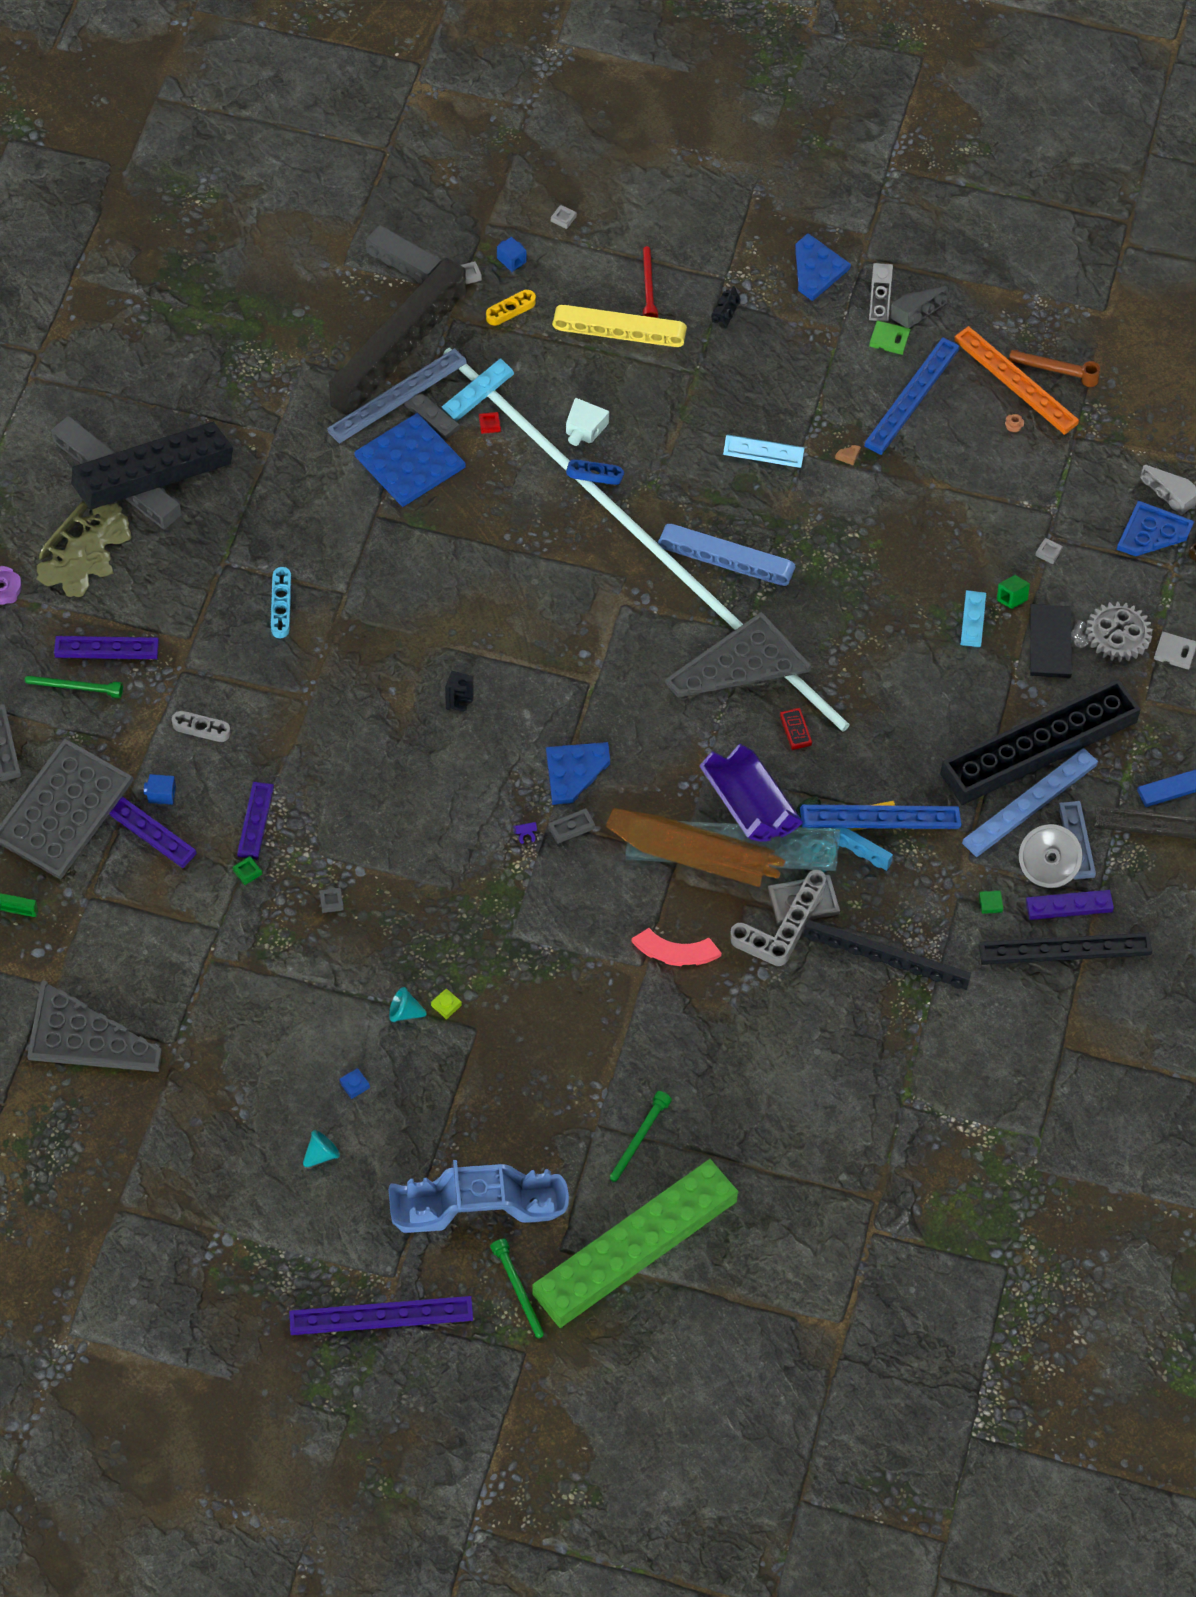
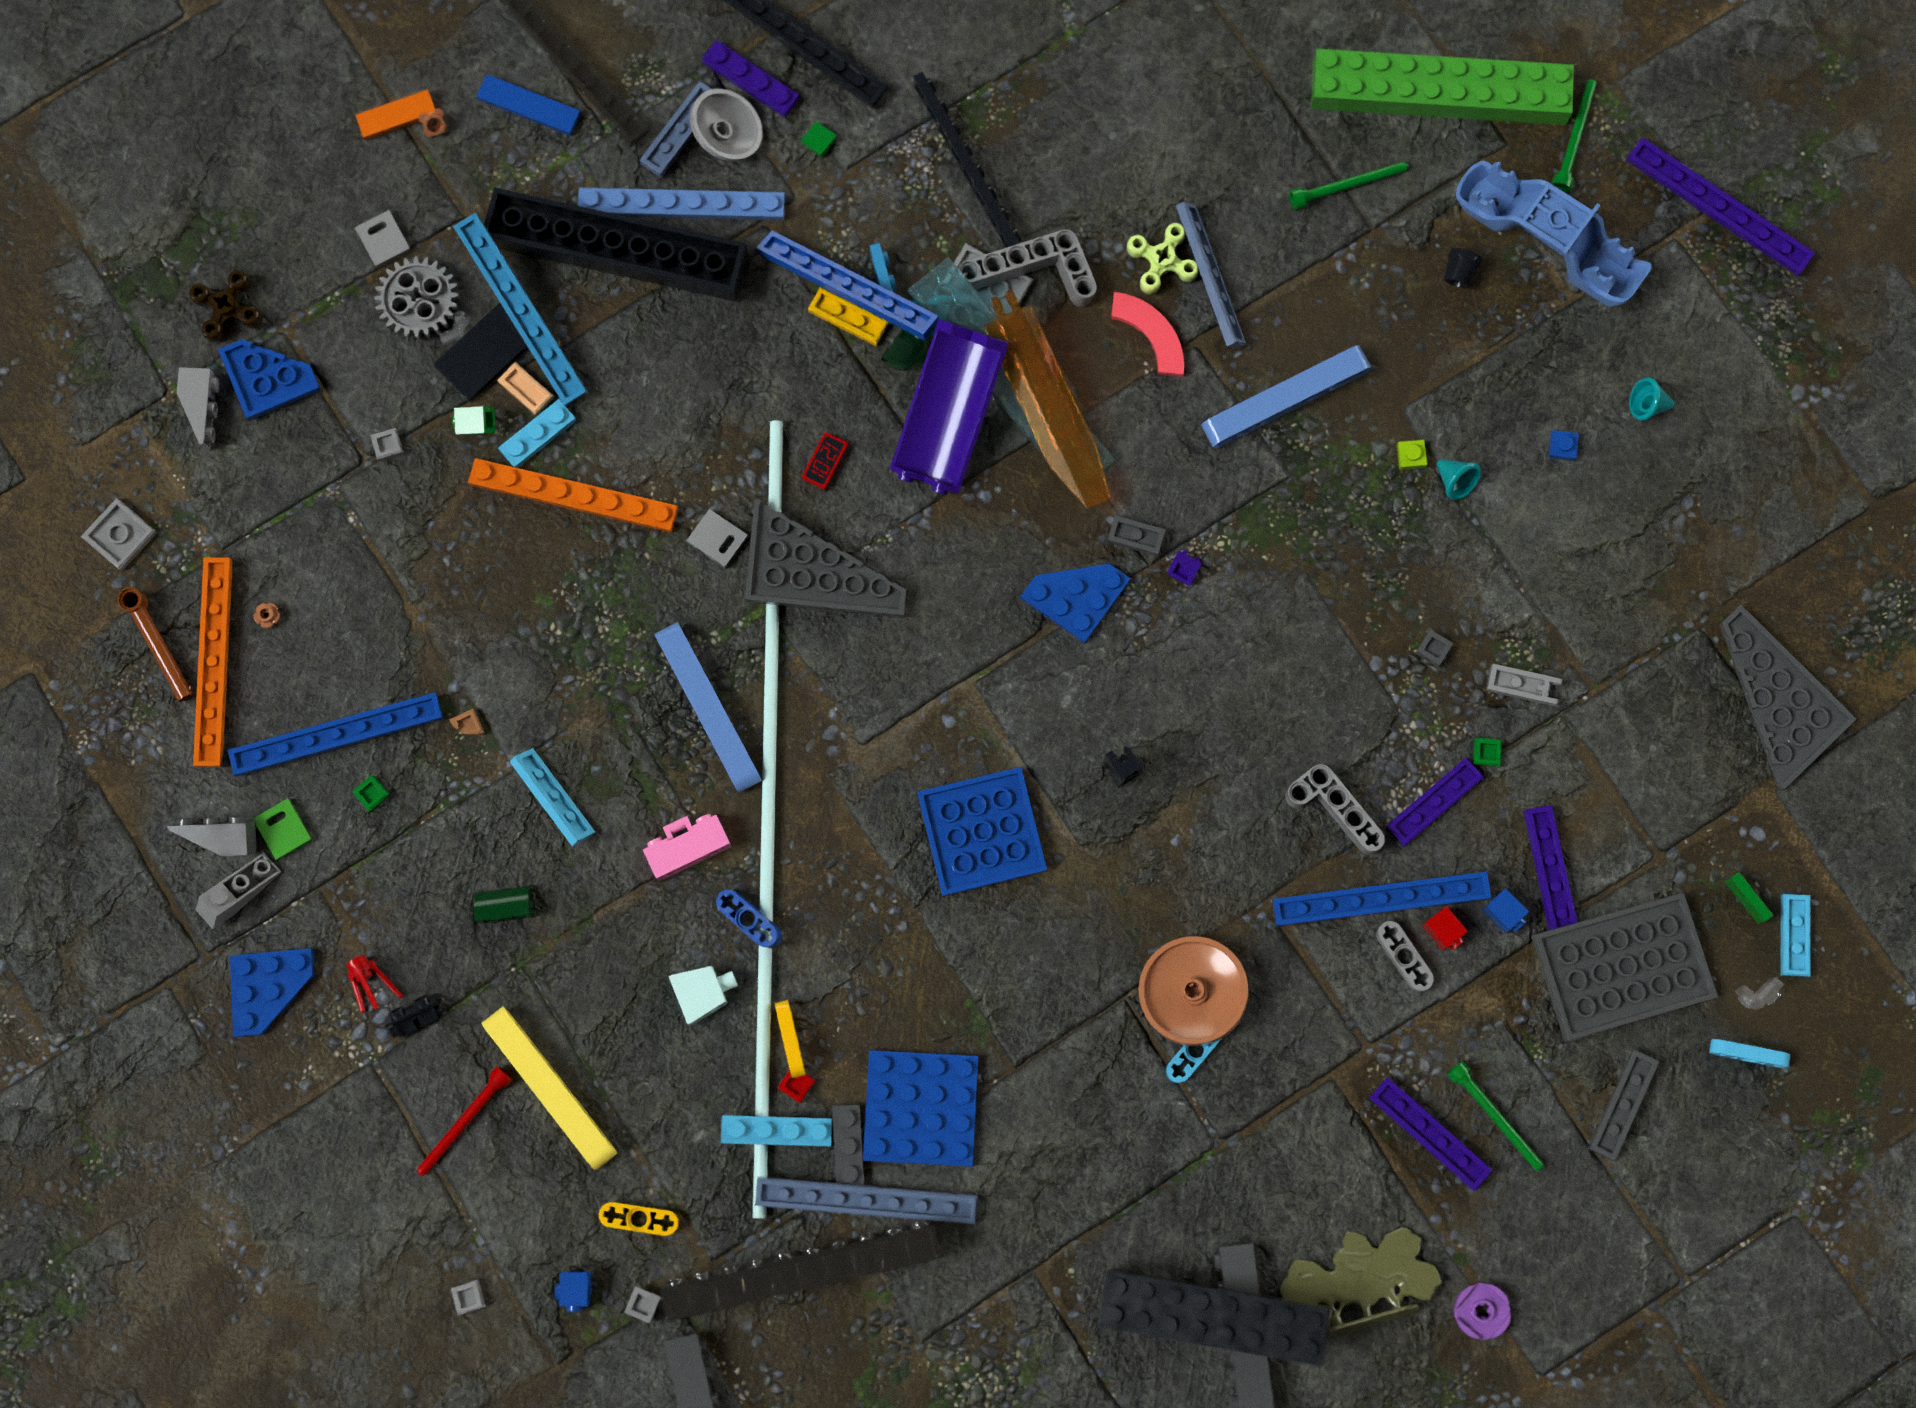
camera: 135 degrees left, 20 degrees up
(189, 753) = (1445, 929): none -> red brick
(241, 744) = (1381, 899): none -> blue plate
(258, 921) = (1522, 684): none -> light grey hinge
(277, 764) = (1338, 812): none -> light grey beam
(309, 613) = (1193, 991): none -> nougat dish
(508, 608) = (981, 831): none -> blue plate
(513, 434) = (790, 1039): none -> yellow beam
(517, 1137) = (1461, 267): none -> black piece
(555, 974) = (1286, 396): none -> medium blue beam
(660, 487) = (679, 853): none -> bright pink piece
(671, 1007) = (1211, 275): none -> sand blue tile
(709, 989) = (1154, 253): none -> yellowish green gear
(734, 385) = (503, 905): none -> dark green brick
(775, 304) = (360, 972): none -> red plant
(818, 643) = (711, 536): none -> light grey piece
(863, 386) = (371, 793): none -> green tile
(917, 604) = (573, 495): none -> orange plate
(1006, 636) = (525, 389): none -> light nougat tile
(1053, 661) = (520, 309): none -> dark azure plate
(1137, 402) = (119, 534): none -> light grey tile

